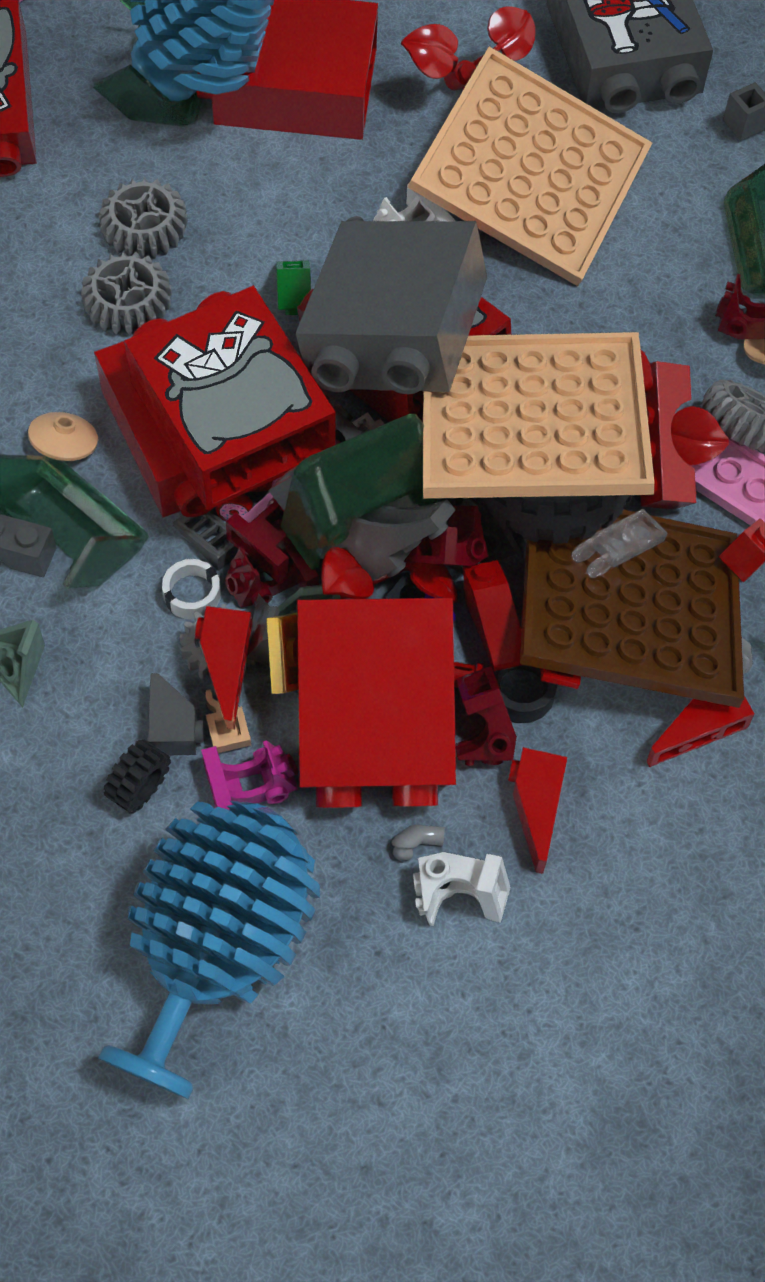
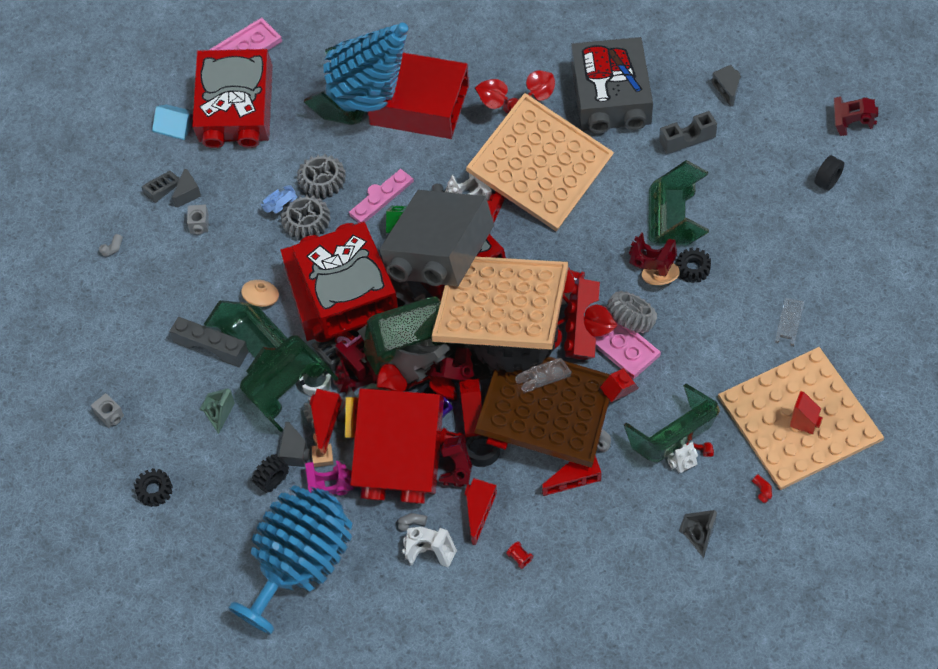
camera: 15 degrees right, 5 degrees down
(68, 266) = (276, 200): none -> light blue plate
(128, 580) = (280, 373): none -> clear green windscreen
(255, 246) = (380, 196): none -> bright pink hinge
(631, 885) = (519, 555): none -> red bush

